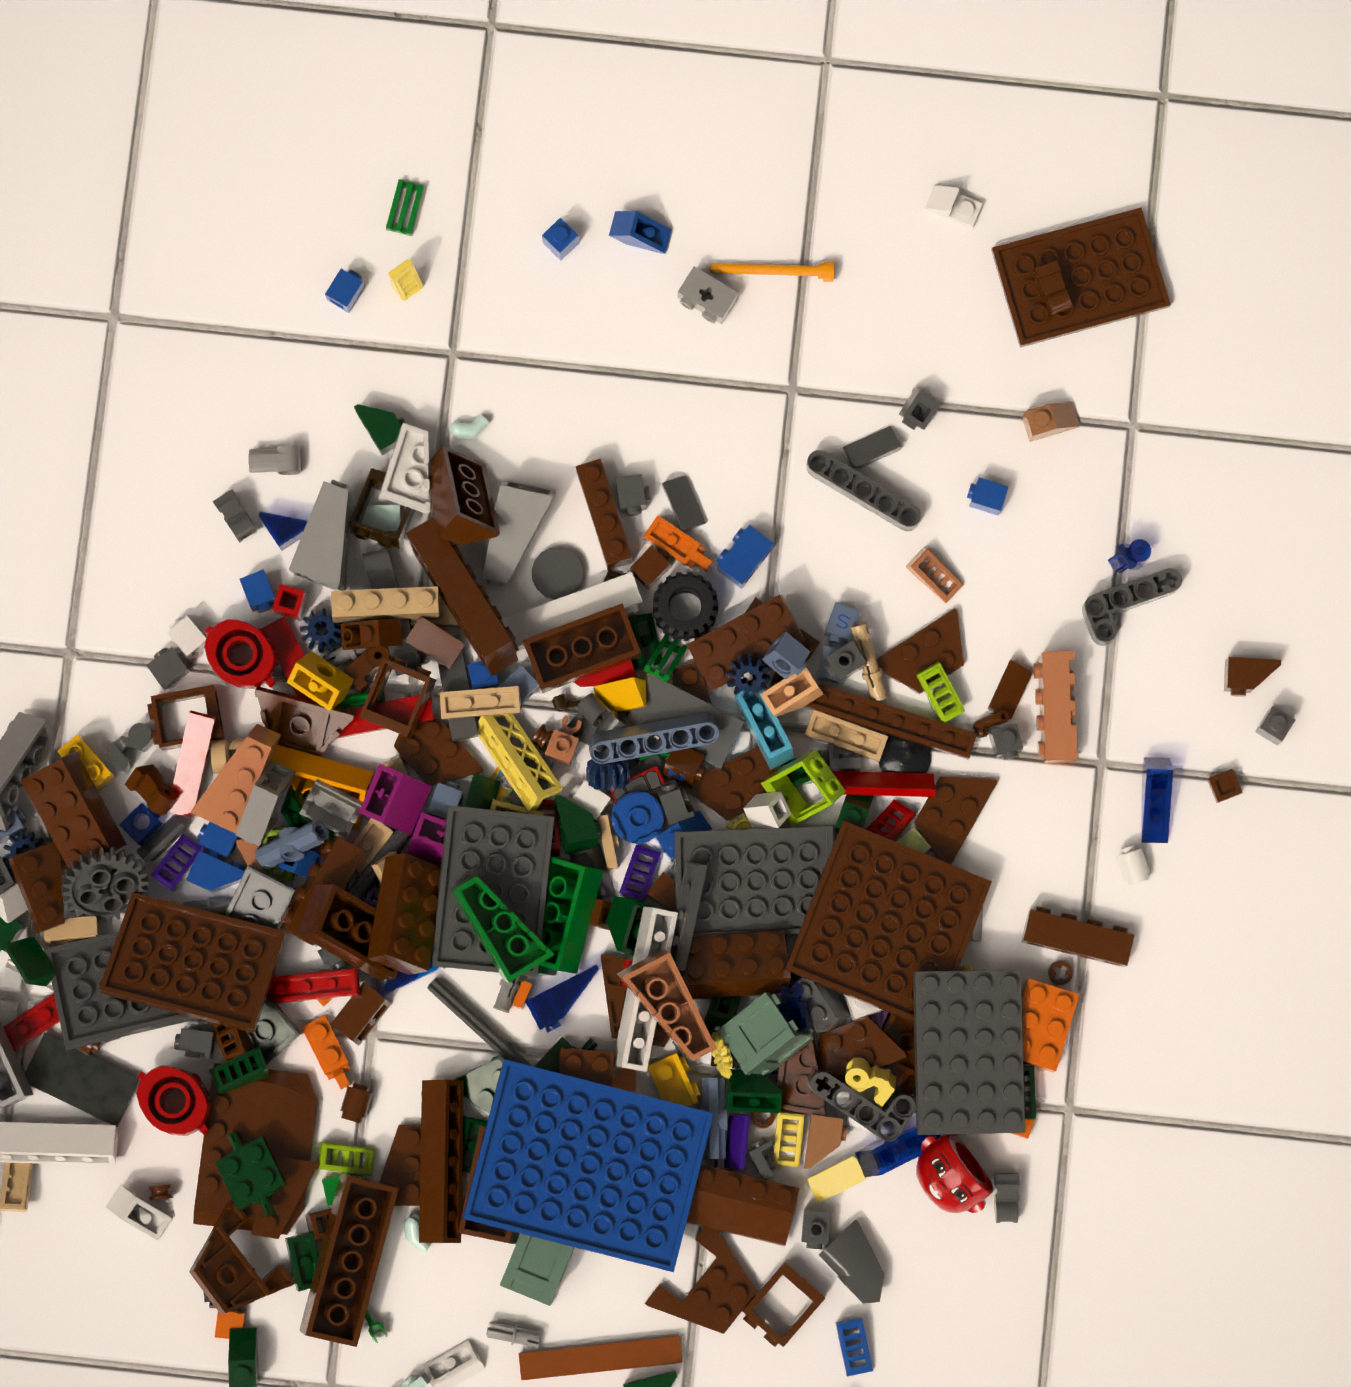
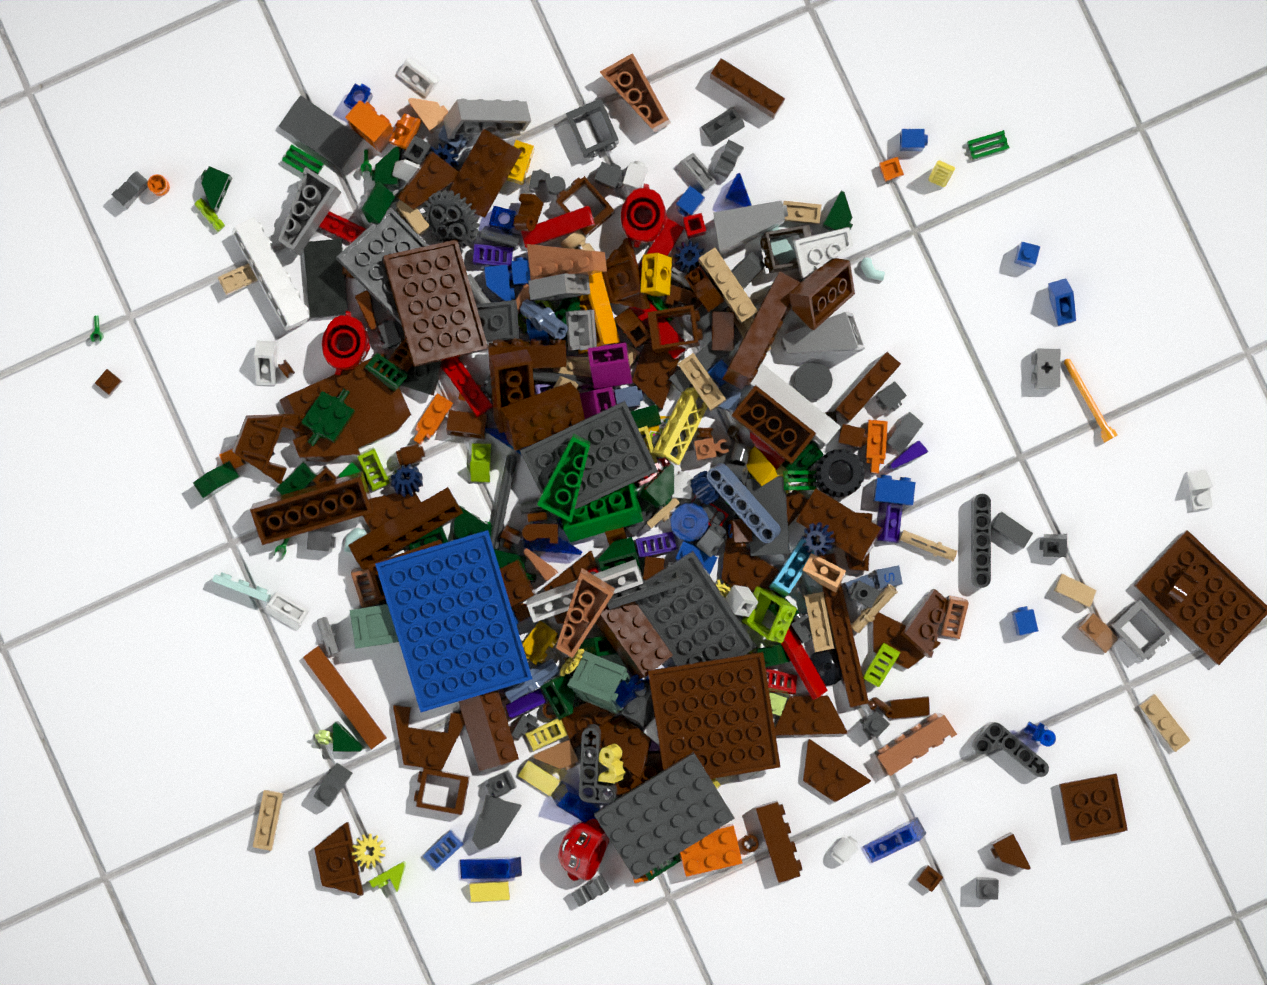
camera: 65 degrees right, 5 degrees up
(73, 651) = (585, 111): none -> dark grey window
(85, 575) = (633, 86): none -> nougat wedge
(140, 1049) = (365, 303): none -> dark orange slope
(165, 444) = (747, 88): none -> reddish brown brick
(192, 499) = (723, 126): none -> dark grey slope
(228, 564) = (696, 173): none -> light grey slope
(283, 460) = (781, 167): light grey piece -> none
(352, 465) = (803, 212): none -> tan plate
(364, 335) = (891, 169): none -> orange plate
(367, 747) = (632, 328): none -> reddish brown slope
(384, 1125) = (407, 480): none -> dark blue gear
(394, 1273) = (321, 541): none -> flat silver brick
(416, 1024) = (480, 462): none -> lime slope
(503, 1261) = (368, 603): none -> nougat slope
(527, 1039) = (512, 536): none -> reddish brown tile
(539, 1004) = (541, 531): none -> reddish brown leg
(590, 1023) = (542, 567): none -> nougat slope
(712, 510) = (913, 452): none -> dark purple slope
(774, 580) = (890, 520): none -> dark purple slope
(786, 656) = (844, 555): sand blue brick -> none
(857, 536) = (949, 554): none -> tan pin
(909, 1301) = (491, 868): none -> clear blue slope
(921, 612) = (925, 623): none -> reddish brown wing
(936, 1320) = (489, 891): none -> light yellow slope
(986, 417) = (1075, 590): none -> tan slope
(1033, 829) = (830, 774): none -> reddish brown wing
(1051, 377) = (1128, 614): none -> light grey window
(1201, 407) = (1164, 723): none -> tan plate
(1251, 546) = (1093, 807): none -> reddish brown plate

